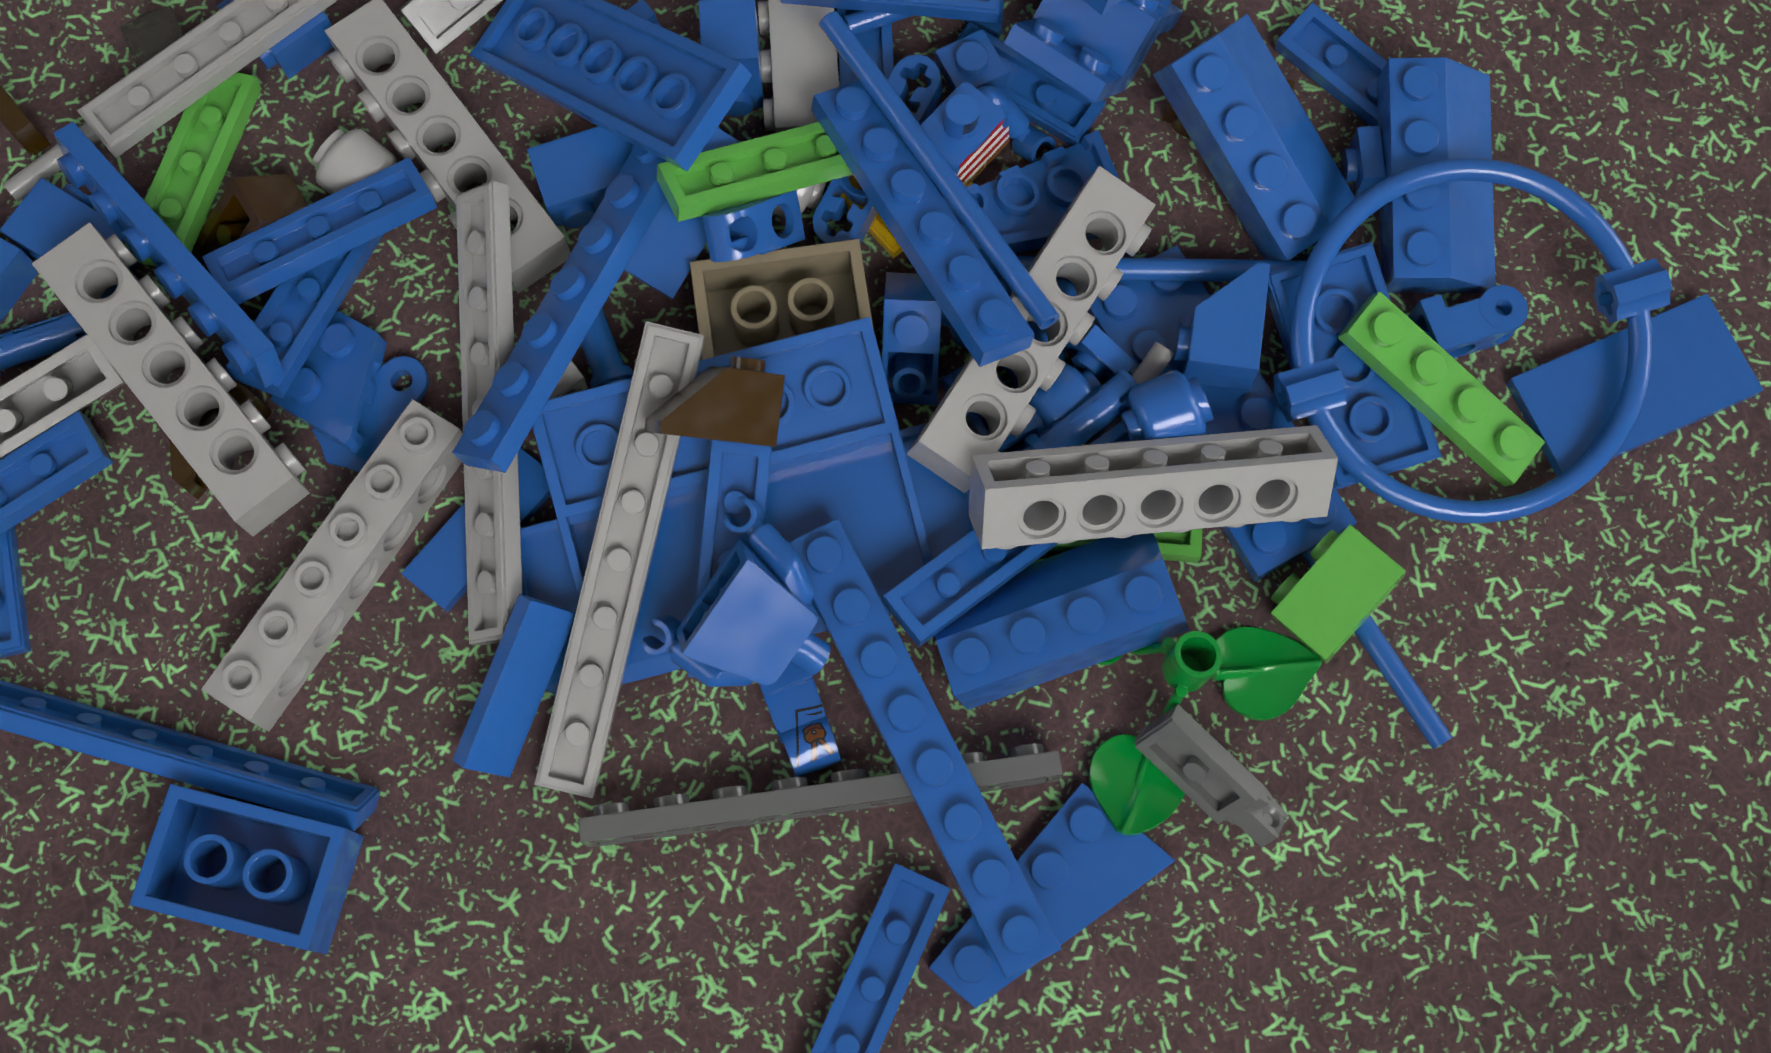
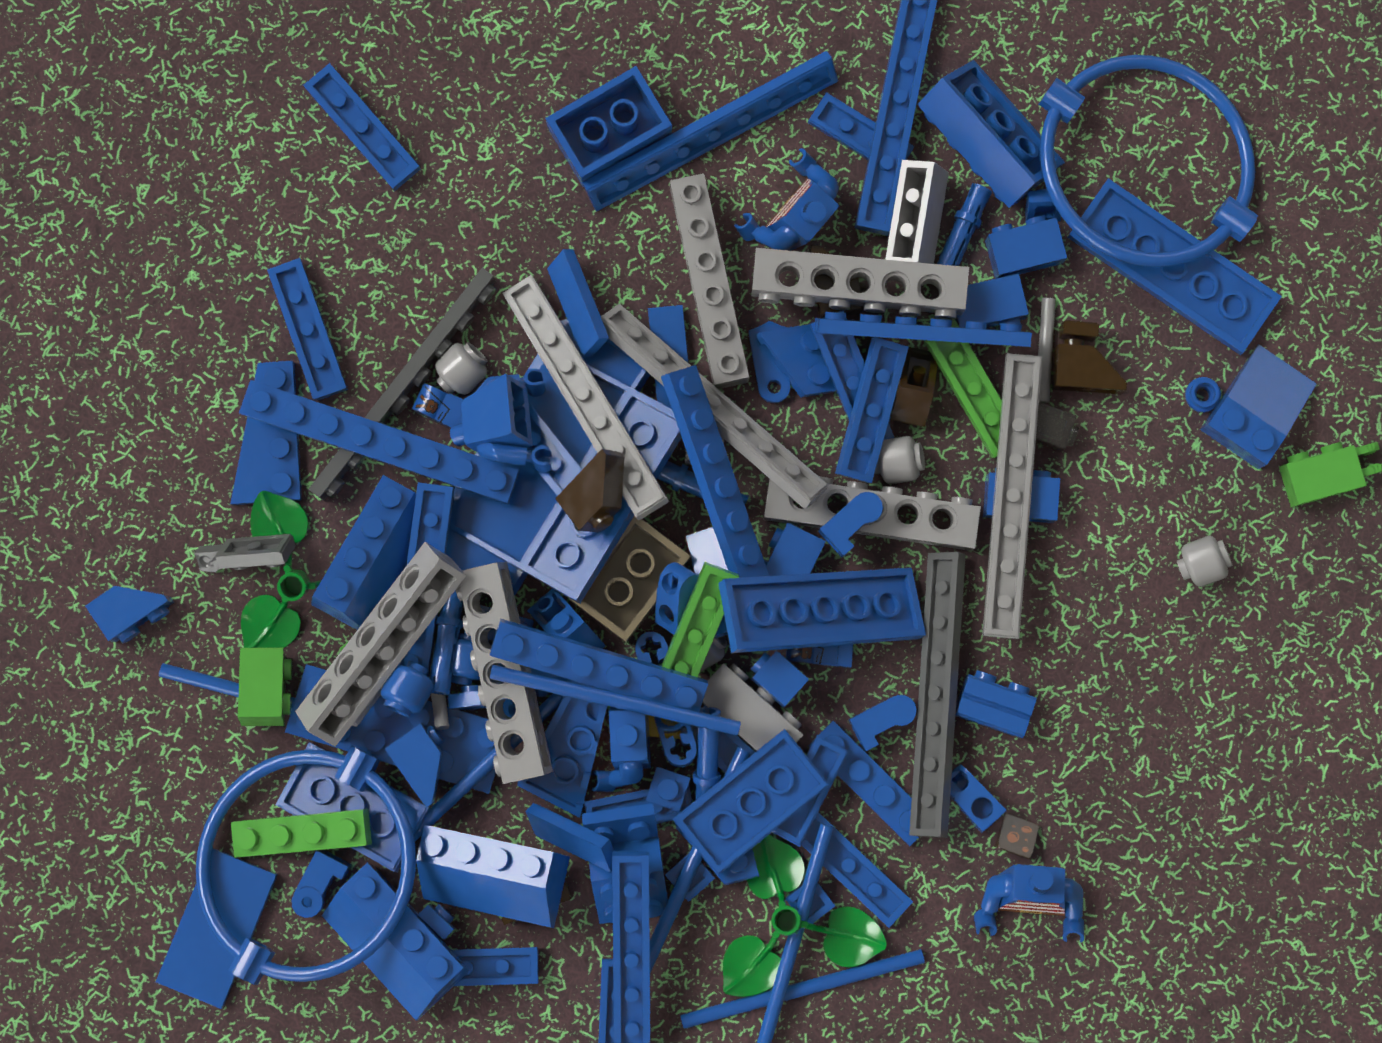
camera: 135 degrees right, 10 degrees up
(55, 73) = (1084, 370): none -> dark brown slope
(149, 534) = (801, 214): none -> blue torso
(475, 131) = (858, 512): none -> blue leg
(733, 749) = (461, 368): none -> light grey head
(913, 37) = (707, 757): none -> blue pin
(1129, 94) = (571, 836): none -> blue tile
(1426, 852) = (125, 609): none -> blue slope

